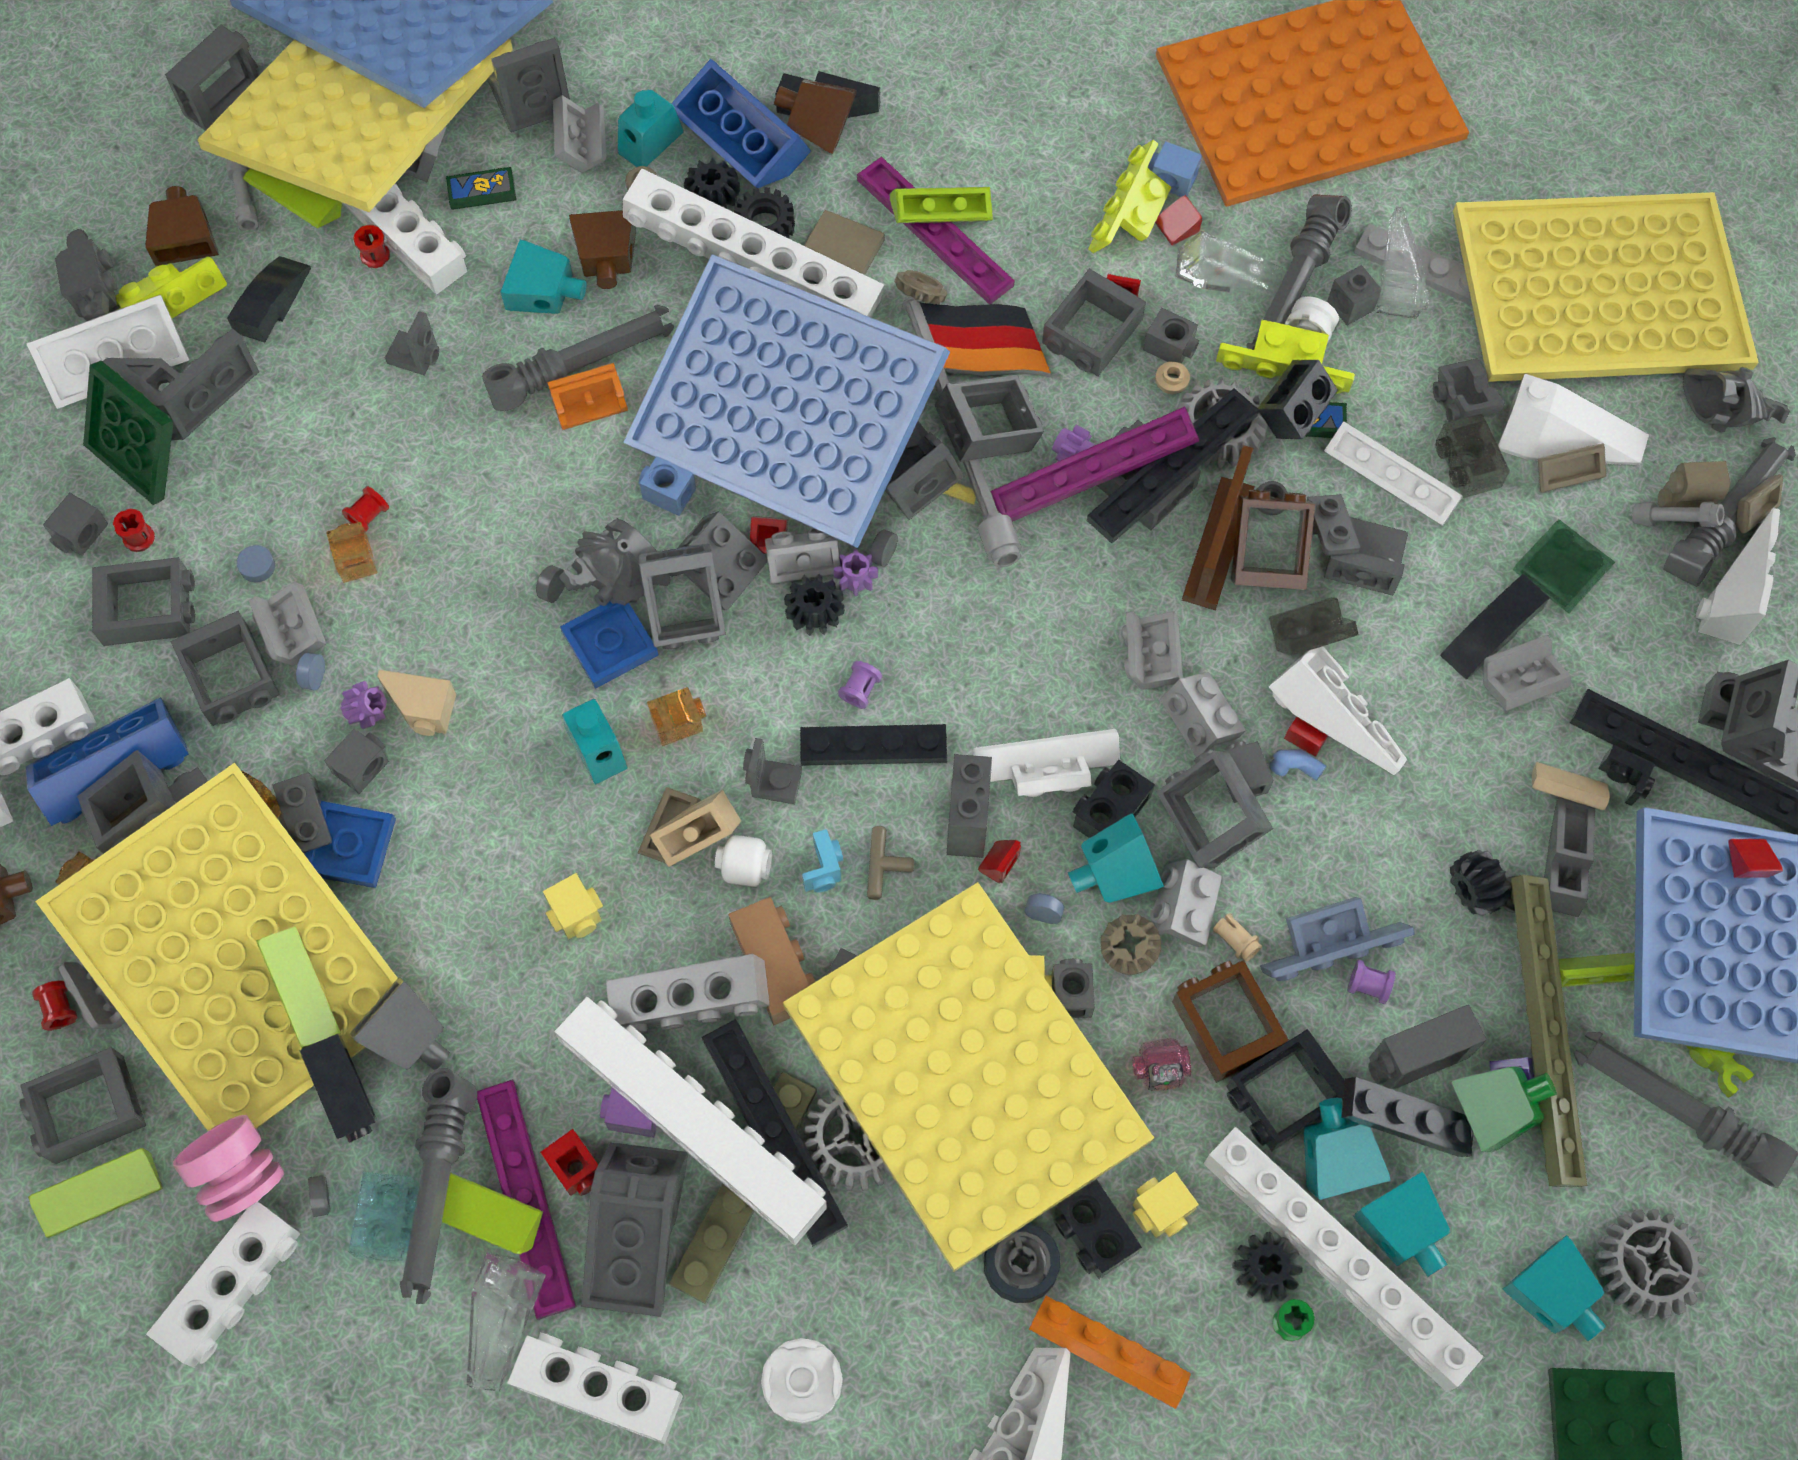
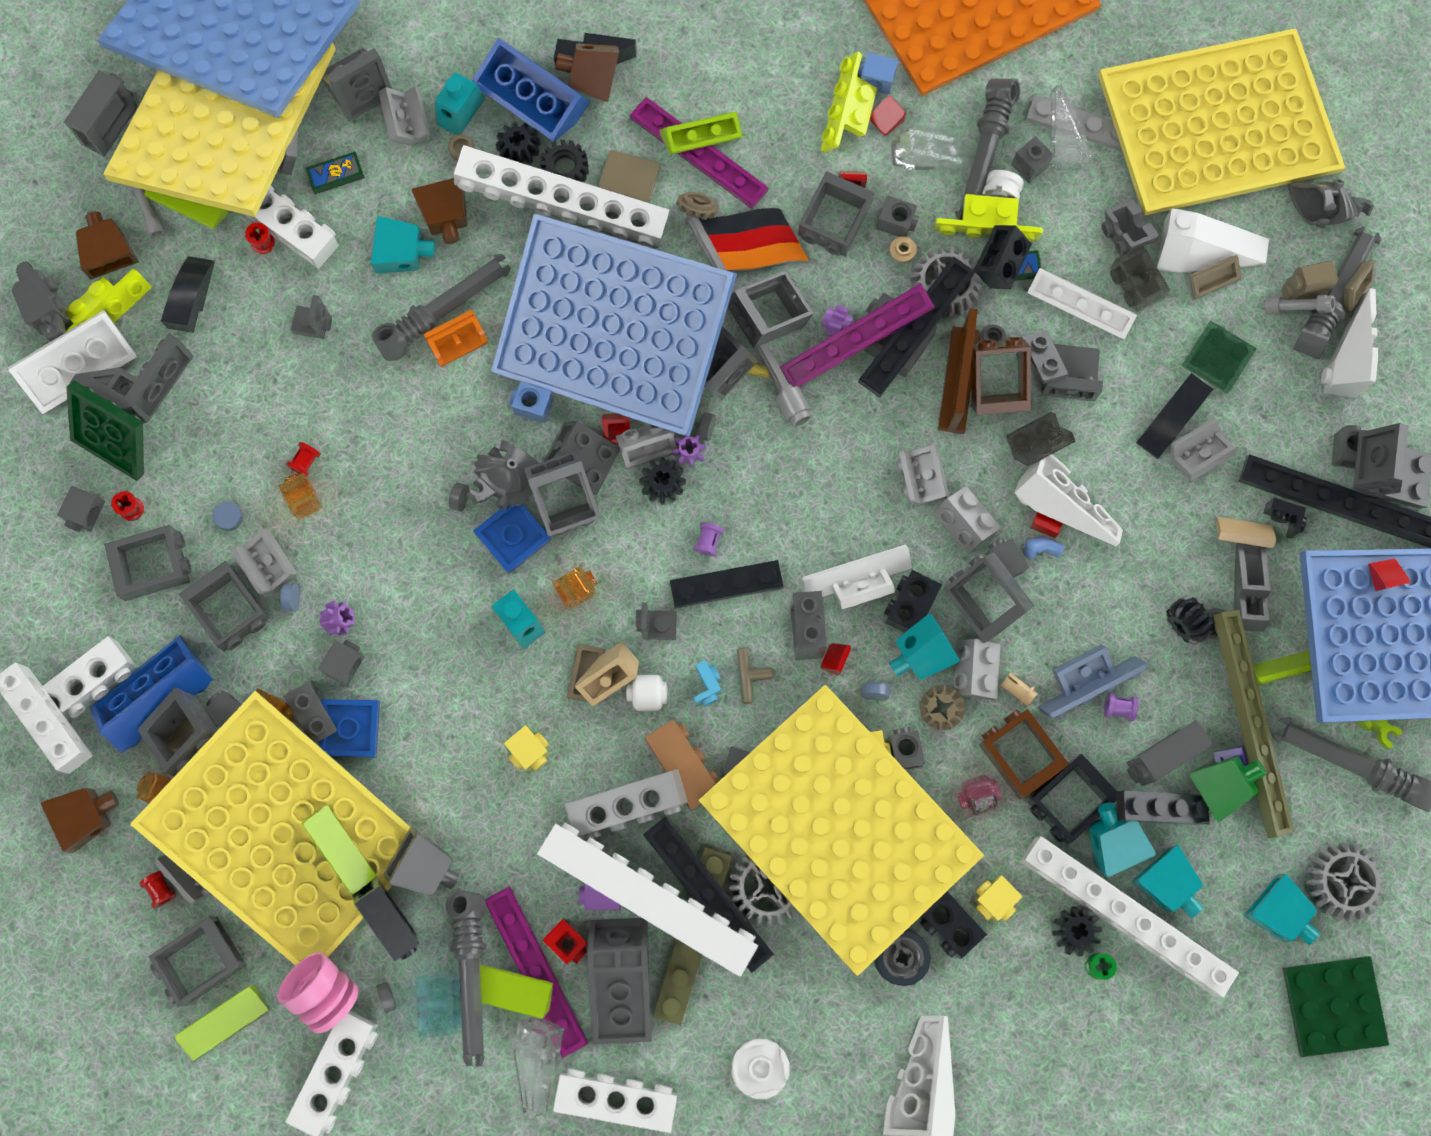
camera: 10 degrees left, 10 degrees up
(421, 700) = (380, 607): tan slope -> none
(1110, 1351) = (975, 1011): orange plate -> none

